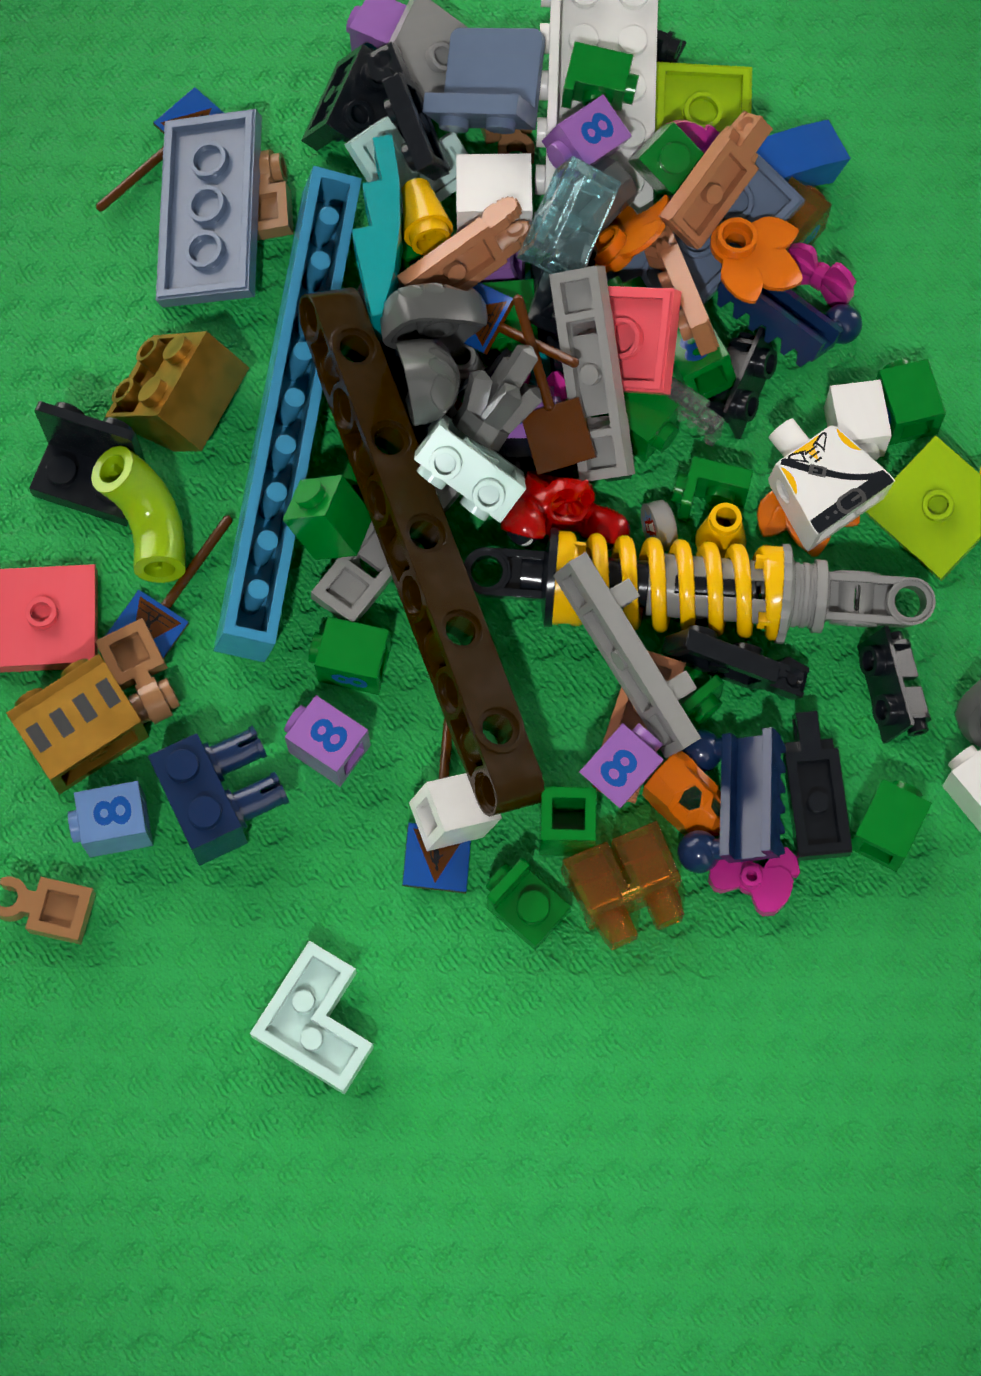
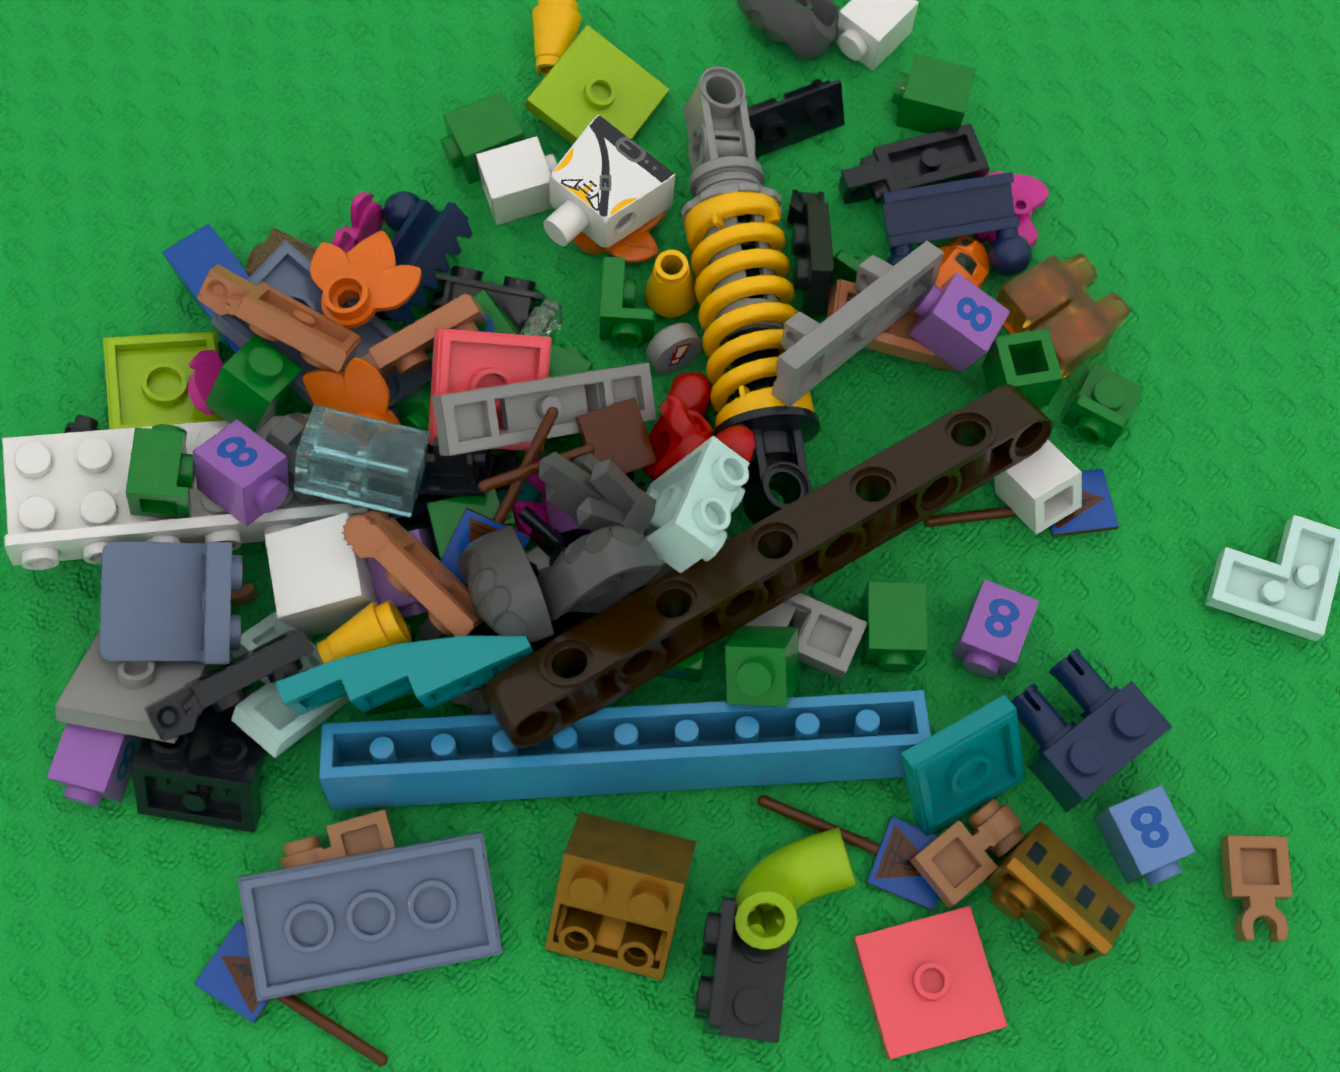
camera: 105 degrees left, 0 degrees up
(205, 670) = (964, 765): none -> teal tile

